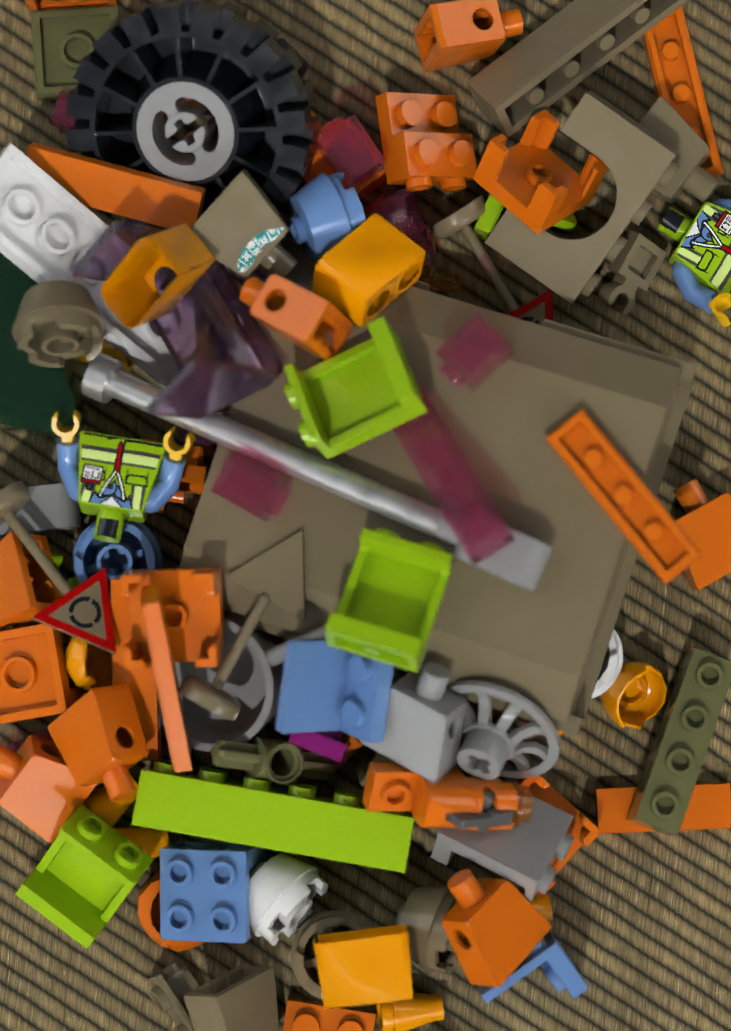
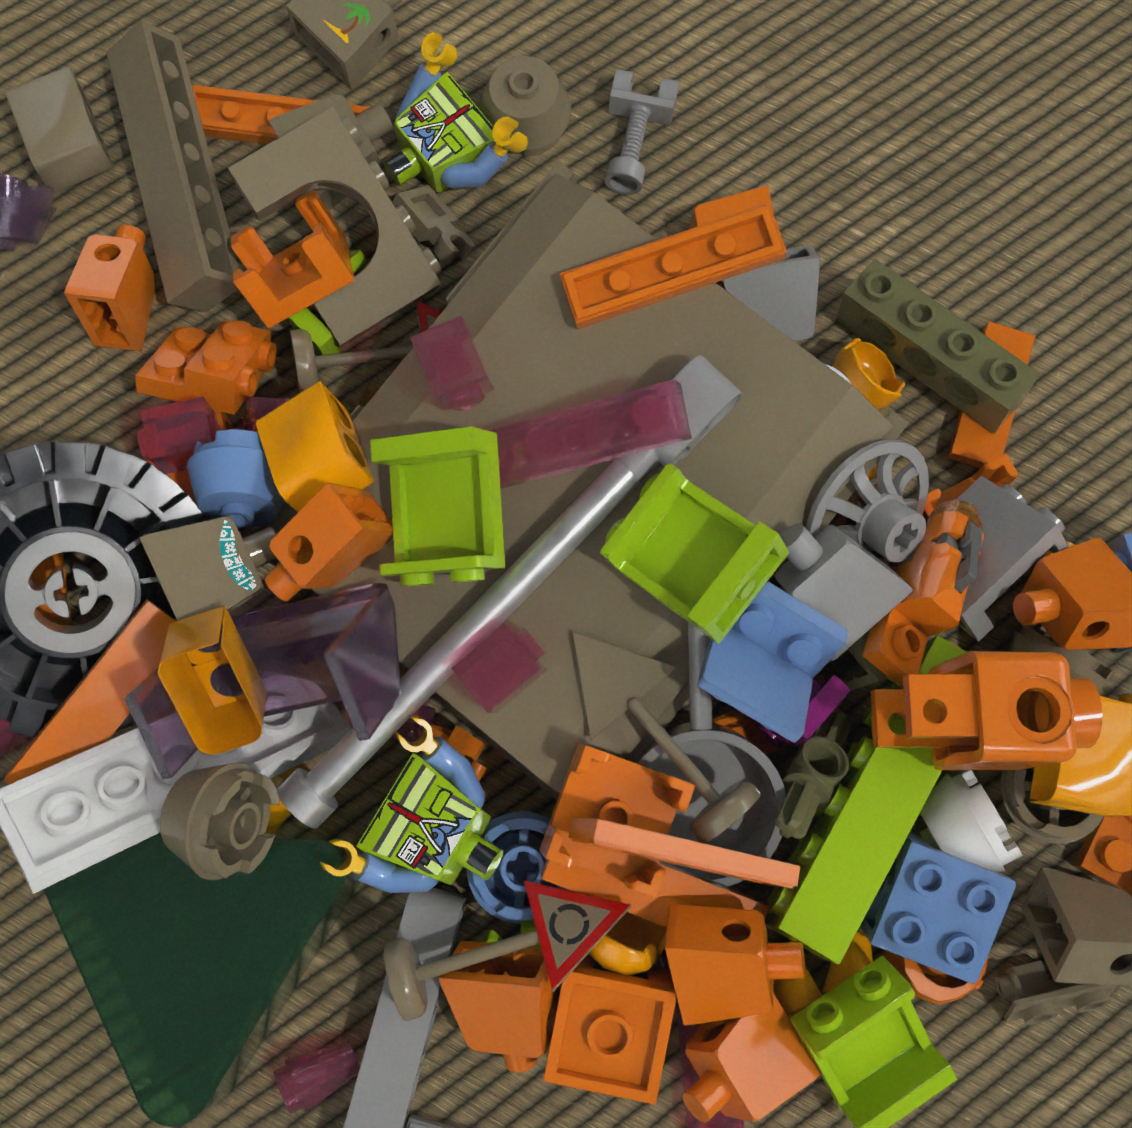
camera: 70 degrees left, 10 degrees down
(350, 851) = (992, 711): none -> orange piece
(662, 606) = (783, 292): none -> light grey torso

